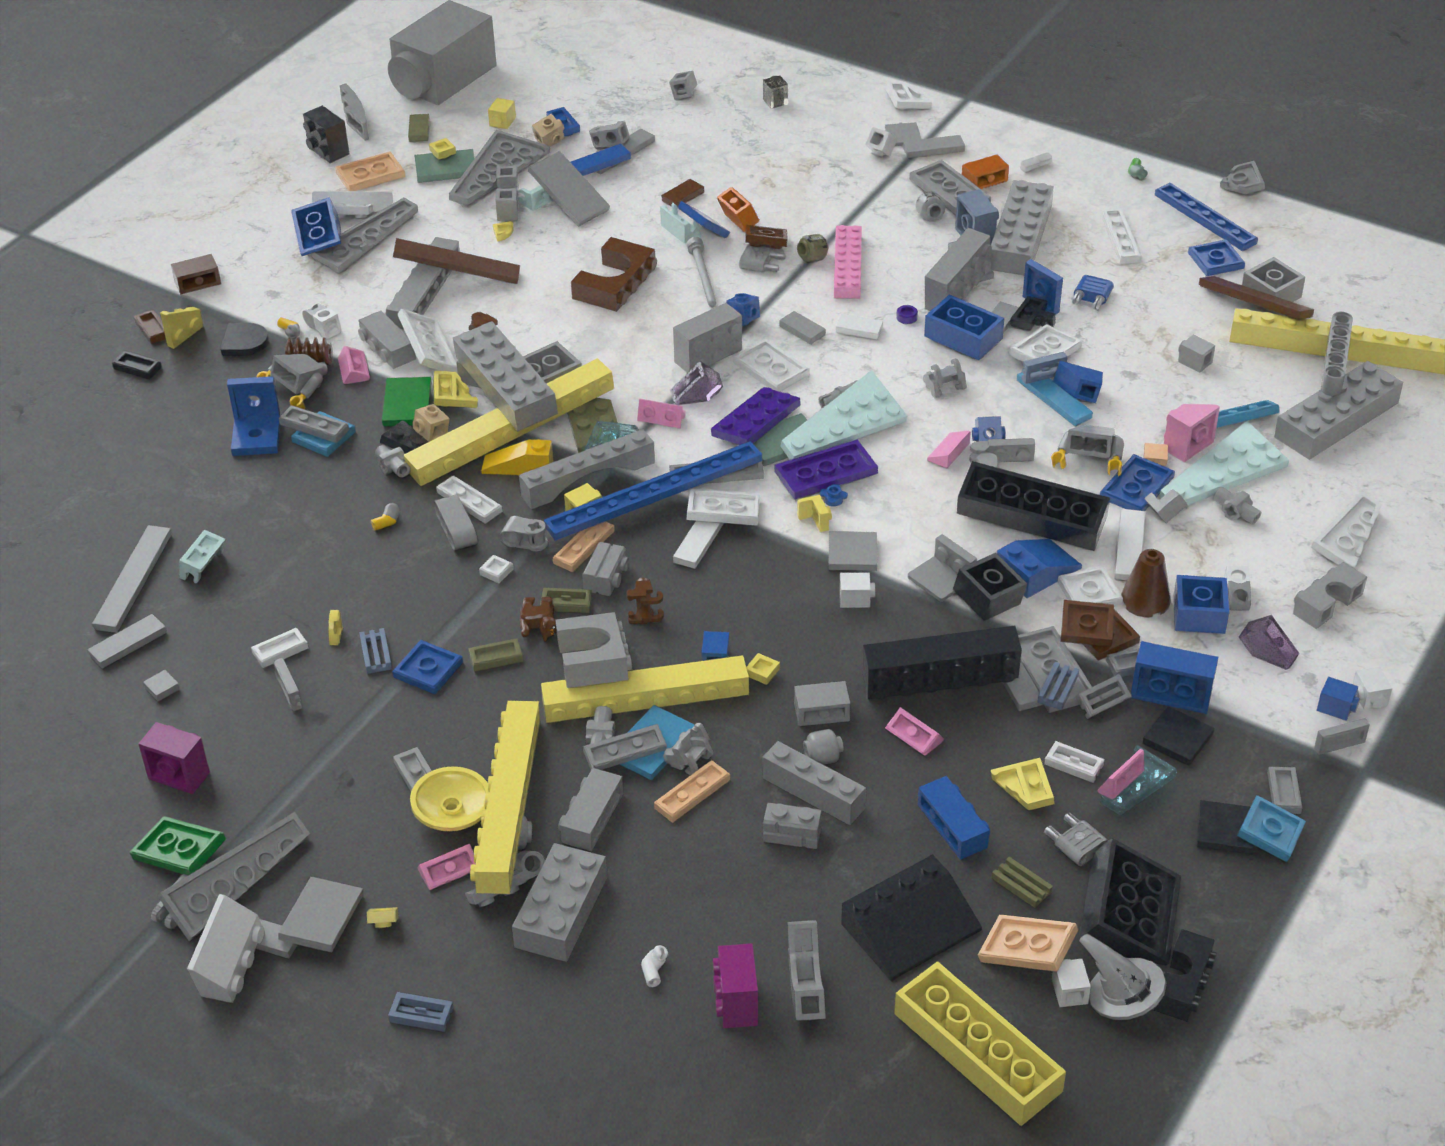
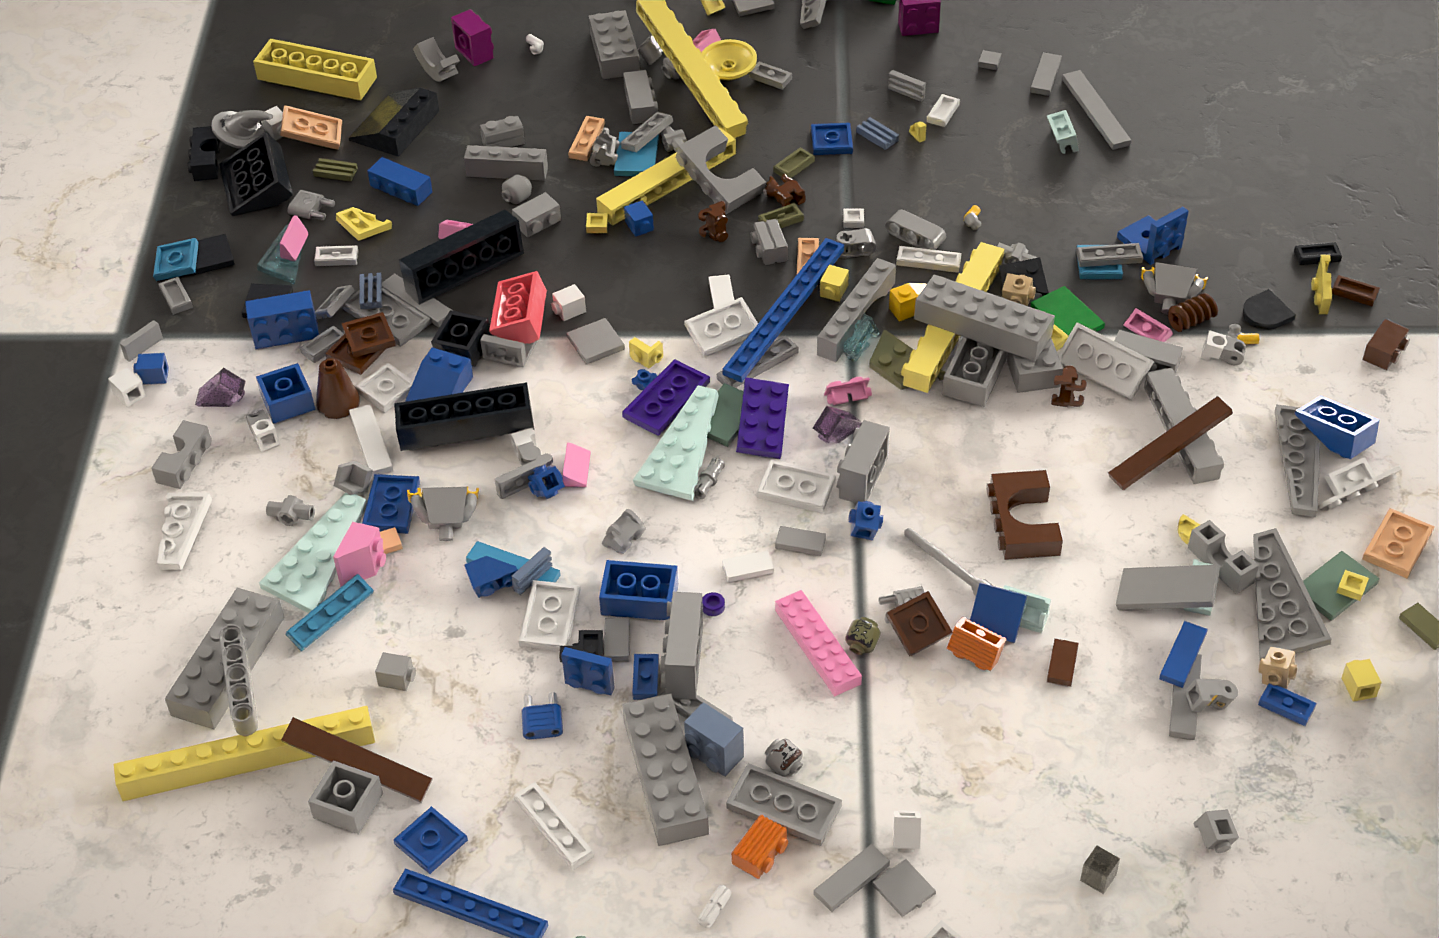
camera: 150 degrees right, 5 degrees up
(915, 586) = (519, 308): none -> coral slope
(995, 285) = (645, 676): none -> blue plate

